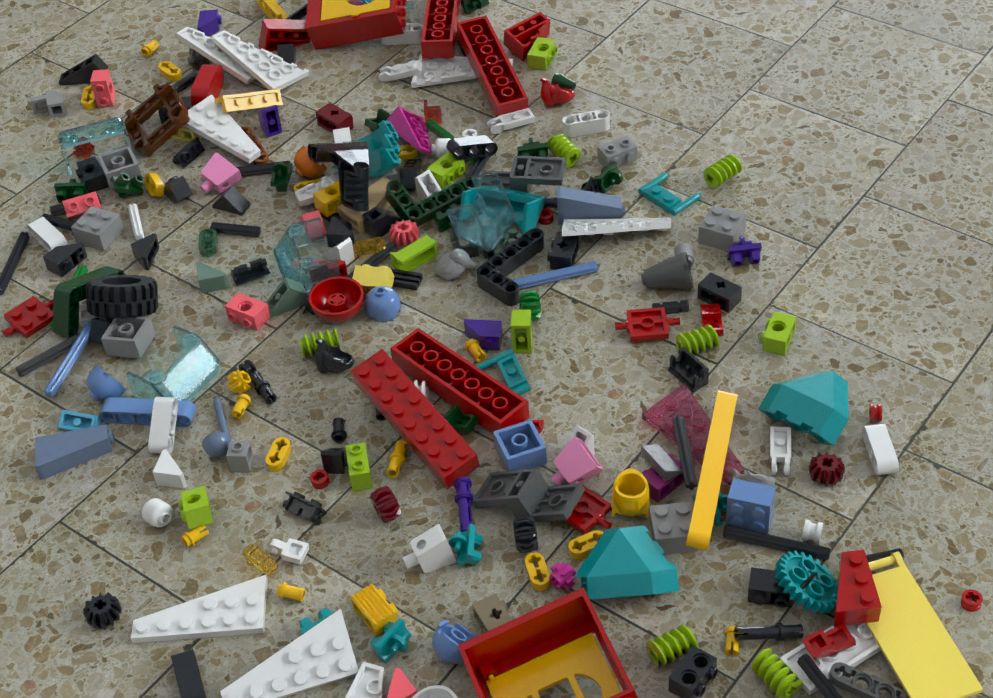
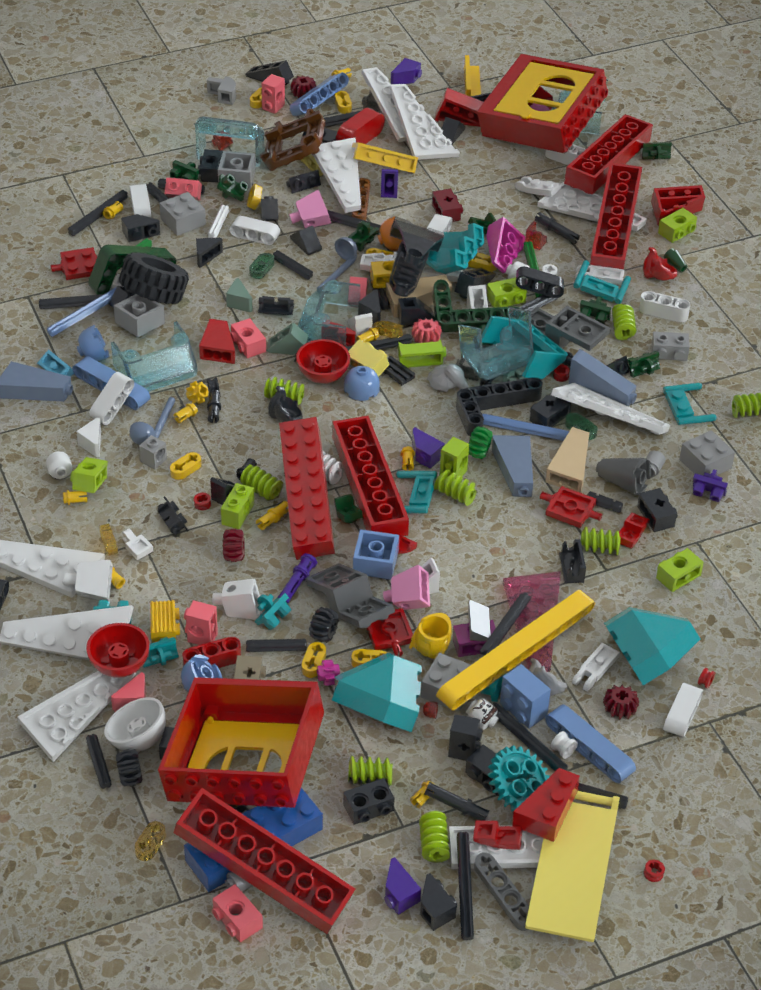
camera: 25 degrees right, 0 degrees up
(25, 256) = (110, 212): none -> yellow pin
(124, 72) = (302, 85): none -> dark red gear
(144, 72) = (319, 94): none -> medium blue beam
(177, 214) = (255, 230): none -> white beam
(223, 328) = (217, 343): none -> red slope
(277, 605) = (92, 579): none -> white torso
(278, 194) = (346, 249): none -> sand blue piece
(356, 258) = (371, 334): none -> yellow pin
(362, 657) = (118, 649): none -> red piece
(371, 436) = (262, 482): none -> lime piece
(414, 592) = (201, 623): none -> coral brick
(436, 97) = (551, 224): none -> black pin
(452, 607) = (221, 652): none -> red beam
(493, 576) = (274, 645): none -> black axle
(519, 131) = (599, 287): none -> teal plate
(539, 354) = (455, 487): none -> lime piece
(572, 309) = (515, 462): none -> sand blue slope
(599, 252) = (578, 421): none -> clear green plate
(617, 286) = (569, 462): none -> tan slope
(677, 559) = (430, 709): none -> clear red hinge
(724, 541) = (484, 711): none -> white head
(731, 570) = (464, 737): none -> black brick
(835, 518) = (591, 744): none -> medium blue beam

